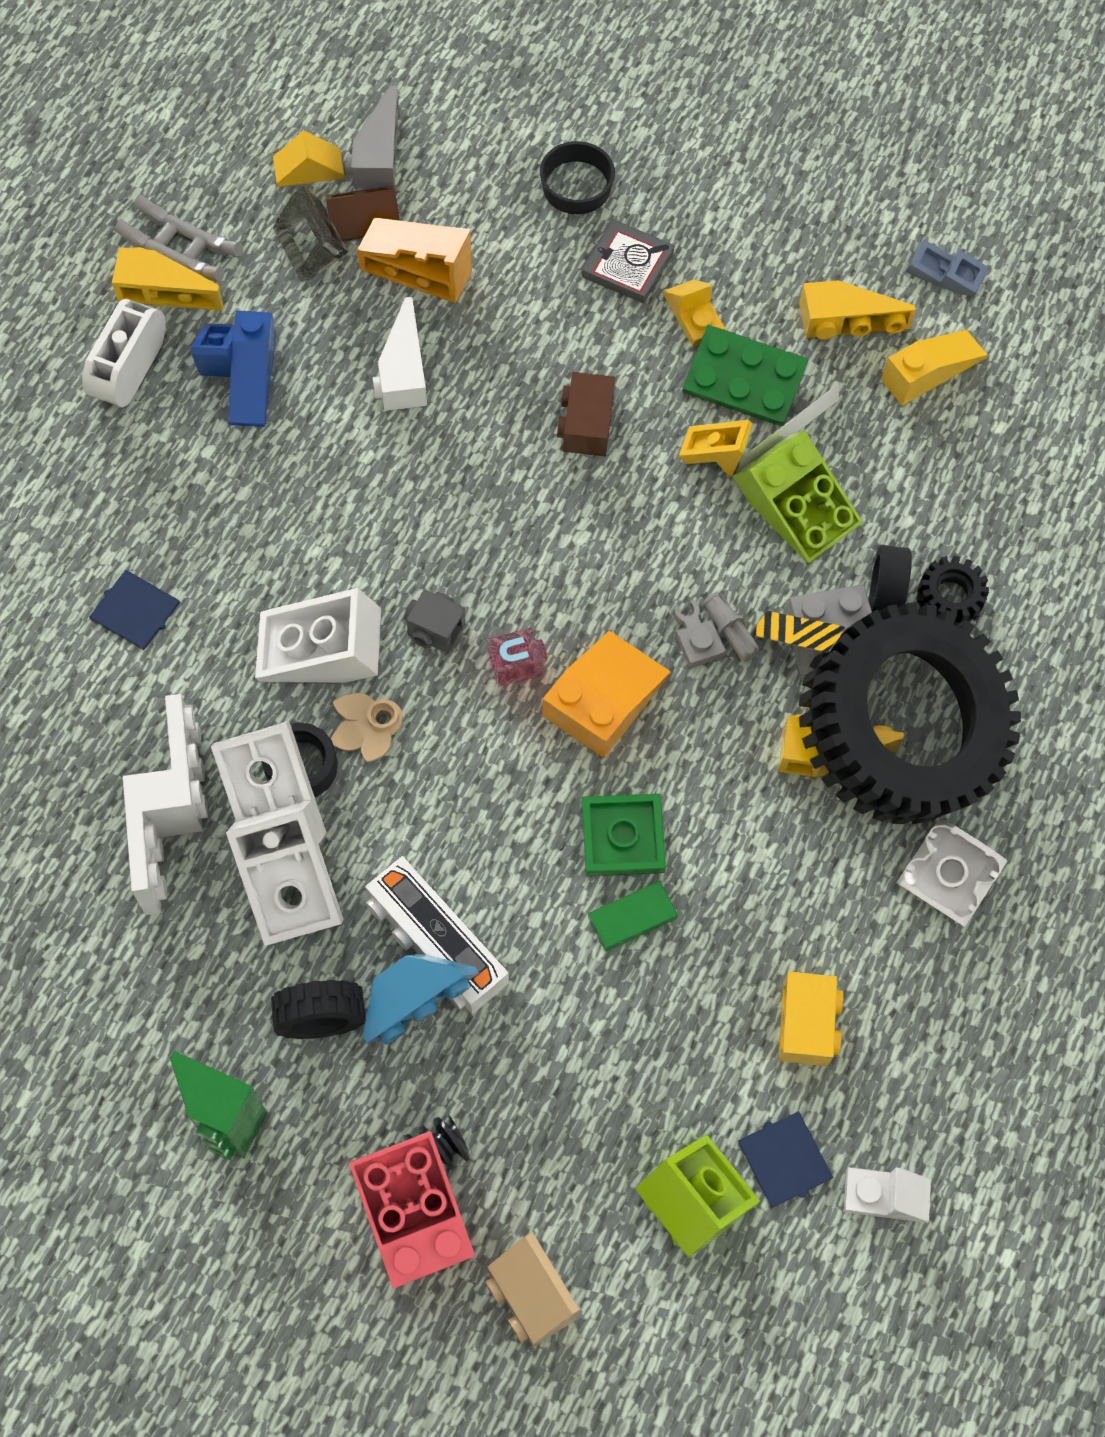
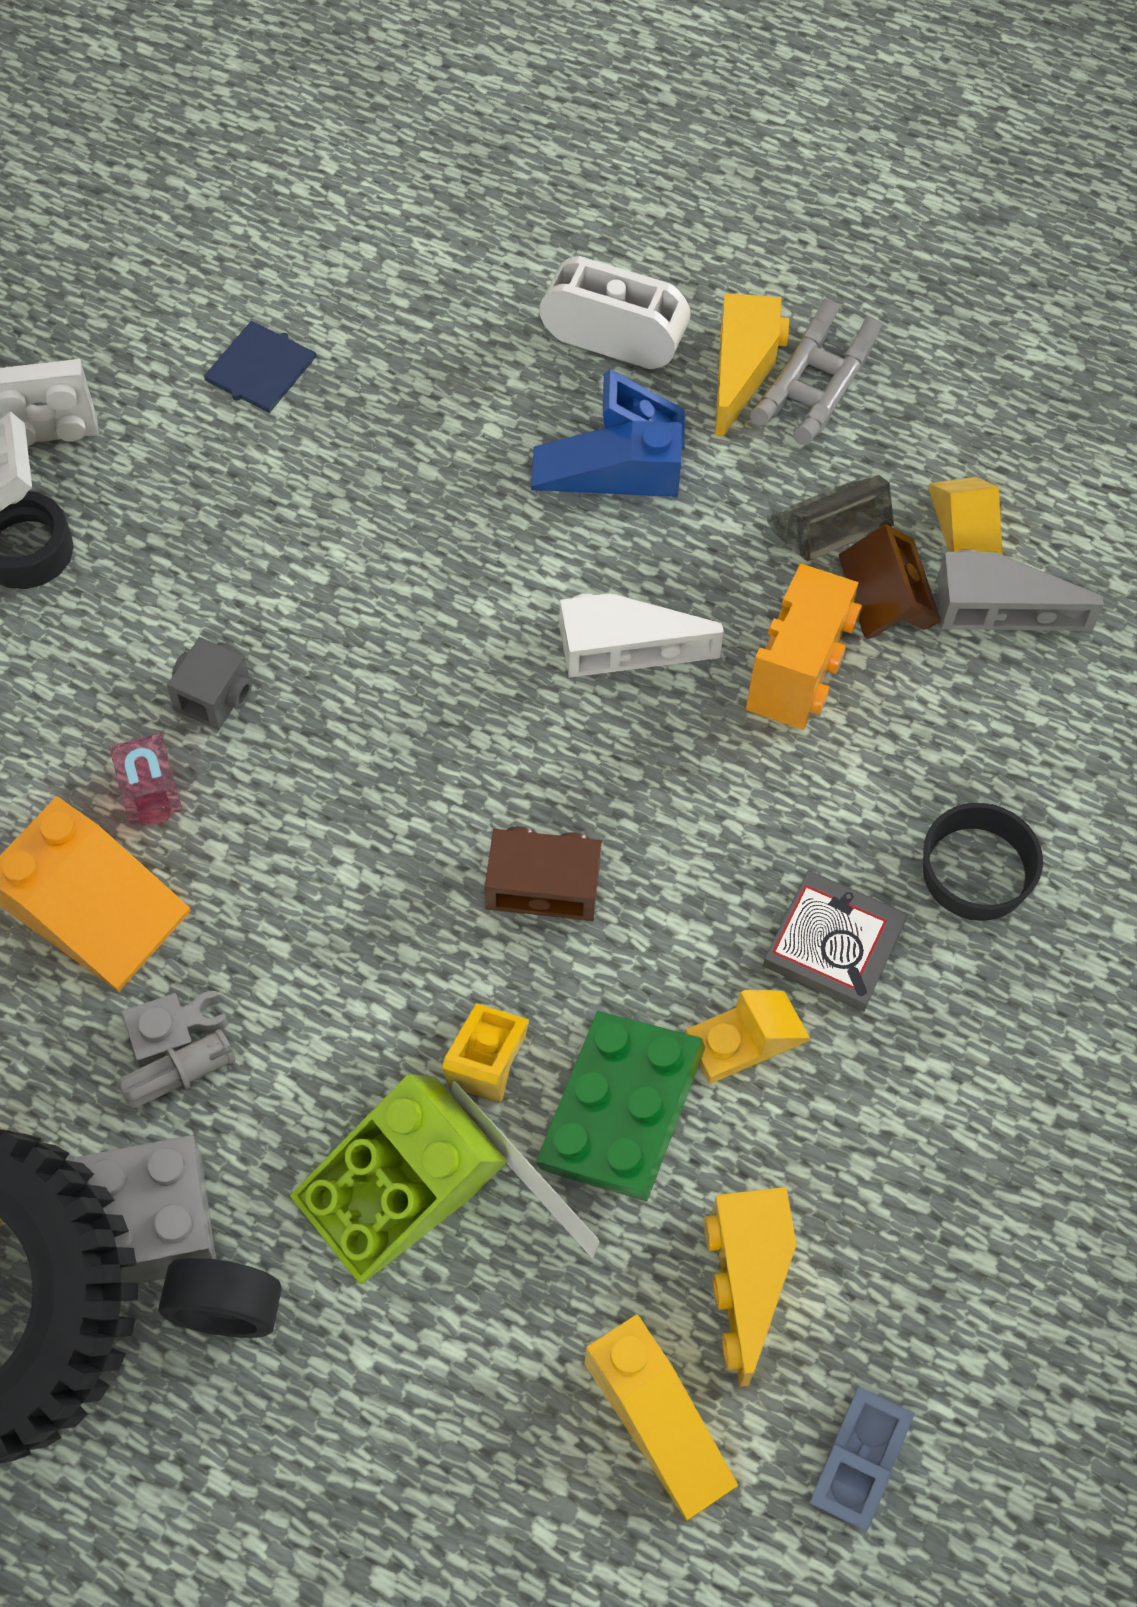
camera: 90 degrees right, 5 degrees down
(320, 640) = (188, 556): white slope -> none
(360, 725) = (67, 609): tan plate -> none
(798, 631) = (115, 1132): sticker -> none
(958, 573) = (188, 1388): black tyre -> none

